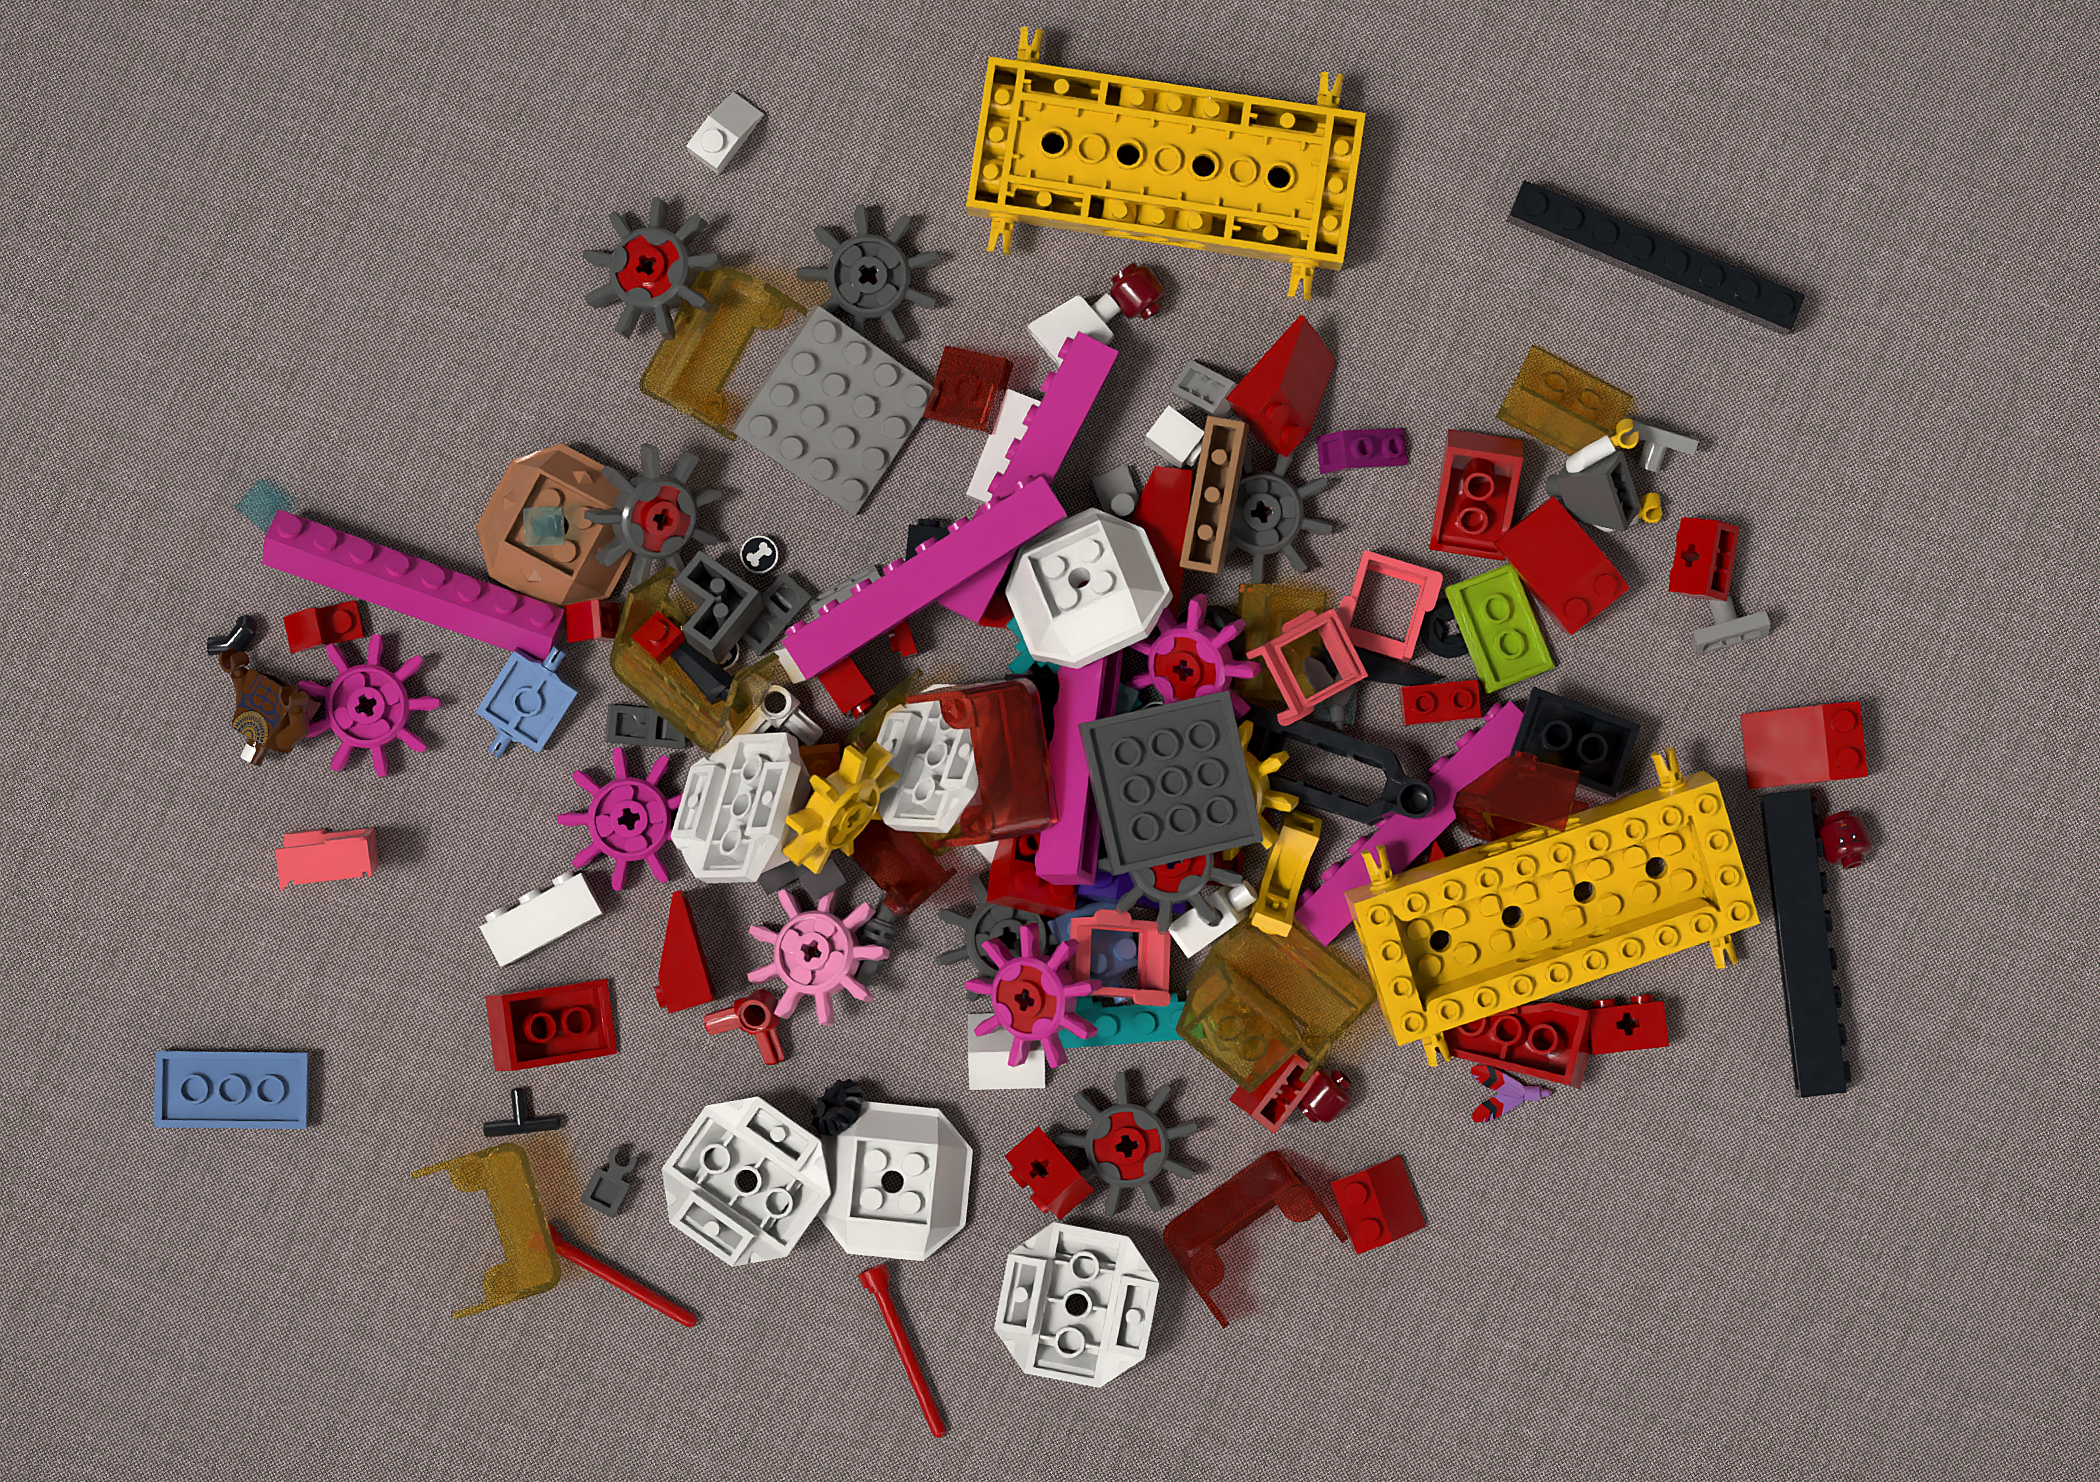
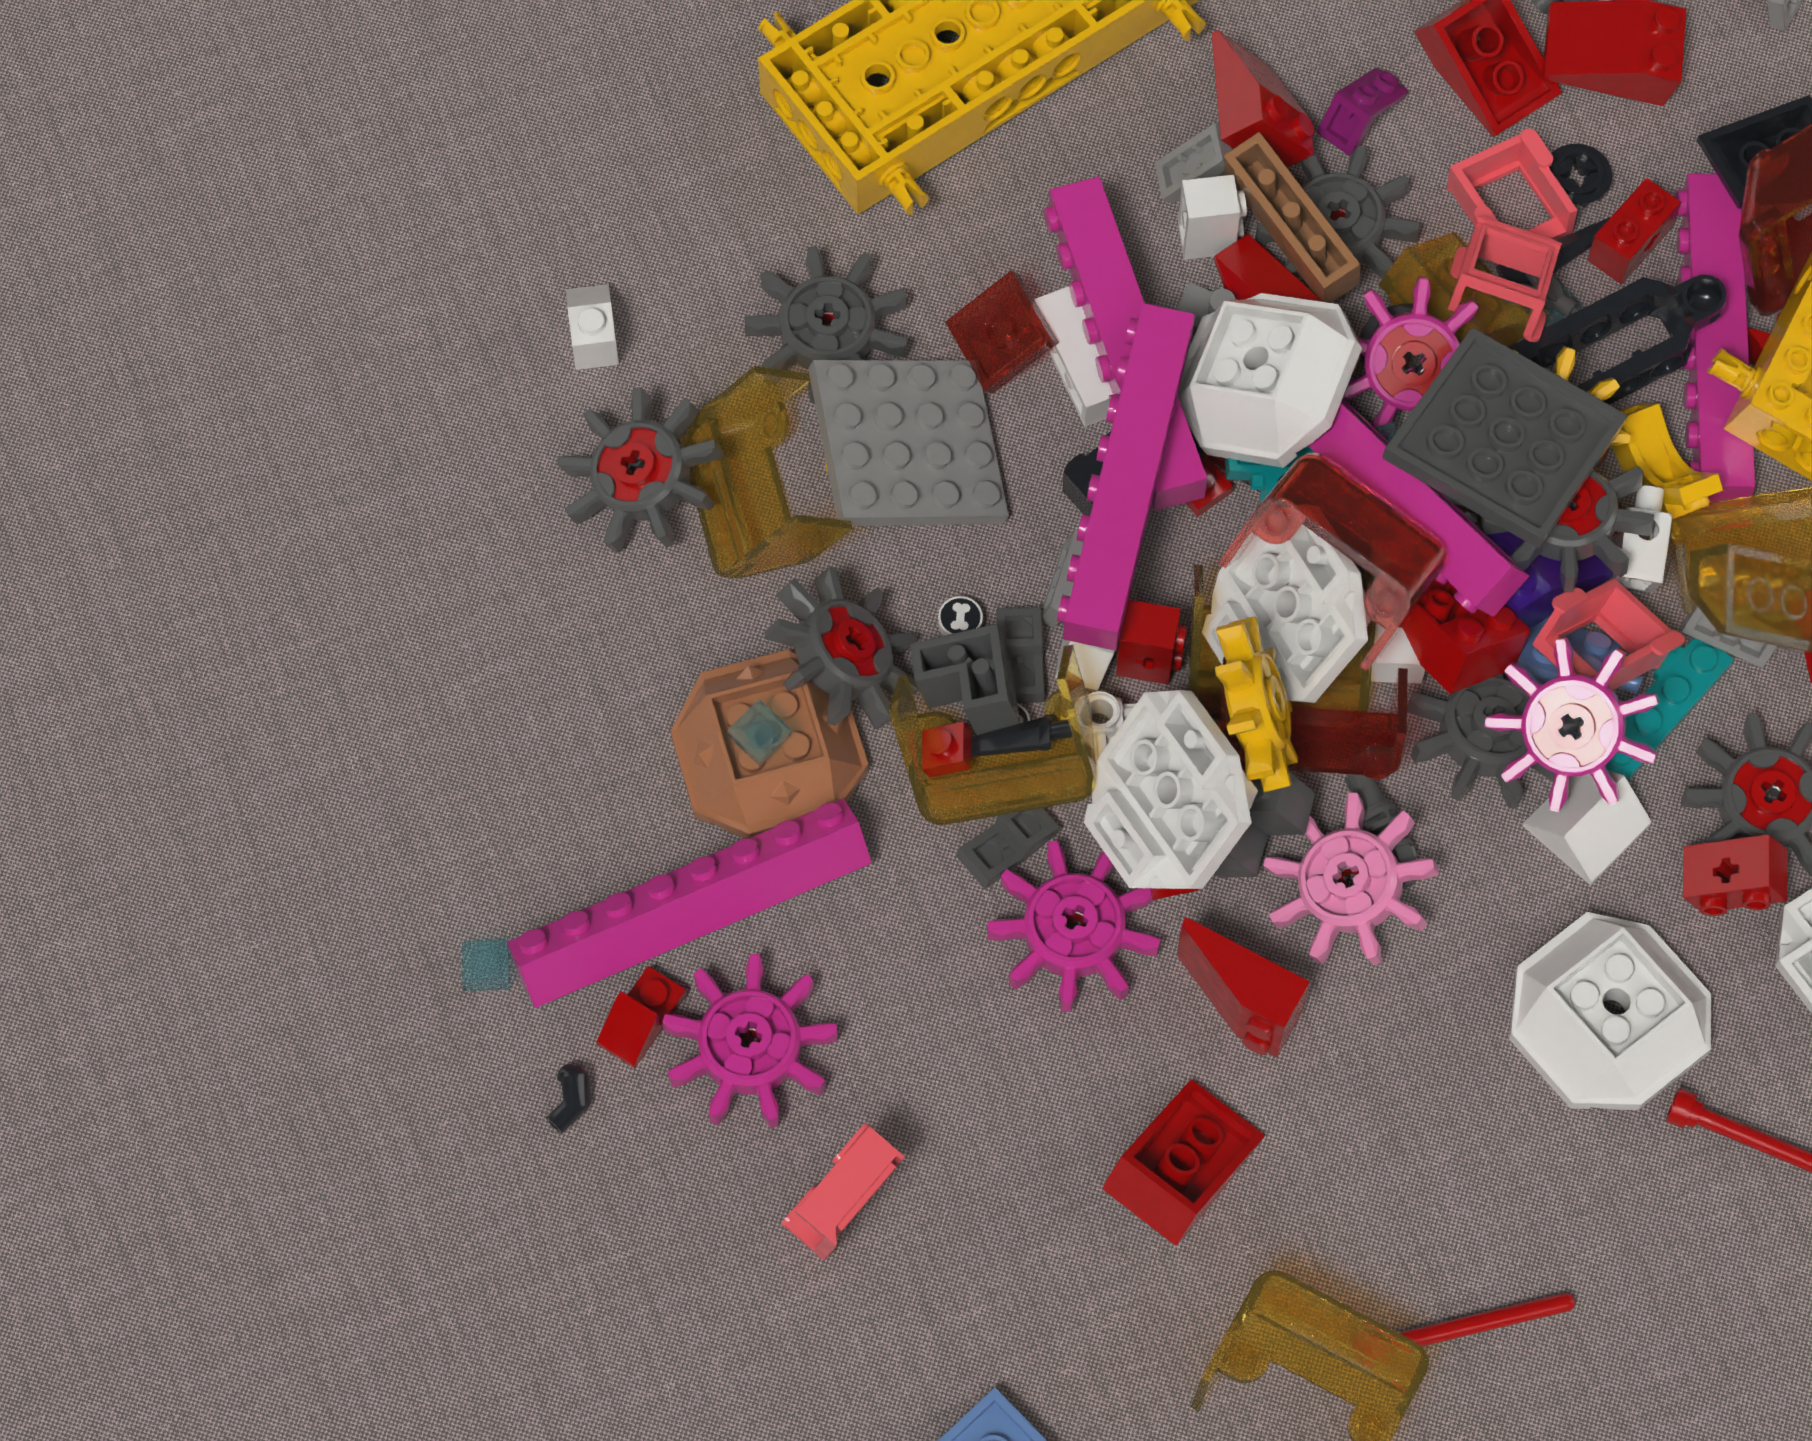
camera: 45 degrees left, 20 degrees down
(266, 709) = (664, 1118): reddish brown torso -> none
(521, 1122) = (1243, 1273): black piece -> none
(527, 700) = (885, 907): medium blue plate -> none
(541, 918) = (1083, 1078): white brick -> none
(591, 621) = (874, 786): red slope -> none
(607, 1188) = (1377, 1253): dark grey plate -> none
(705, 1190) = (1501, 1073): white piece -> none
(742, 1017) = (1369, 991): red axle -> none
(833, 1120) = (1513, 997): black gear -> none
(902, 640) = (1154, 572): red plate -> none
(1069, 318) = (1024, 229): white torso -> none
(1137, 291) = (1059, 145): dark red head -> none
(1499, 628) = (1616, 137): lime tile -> none

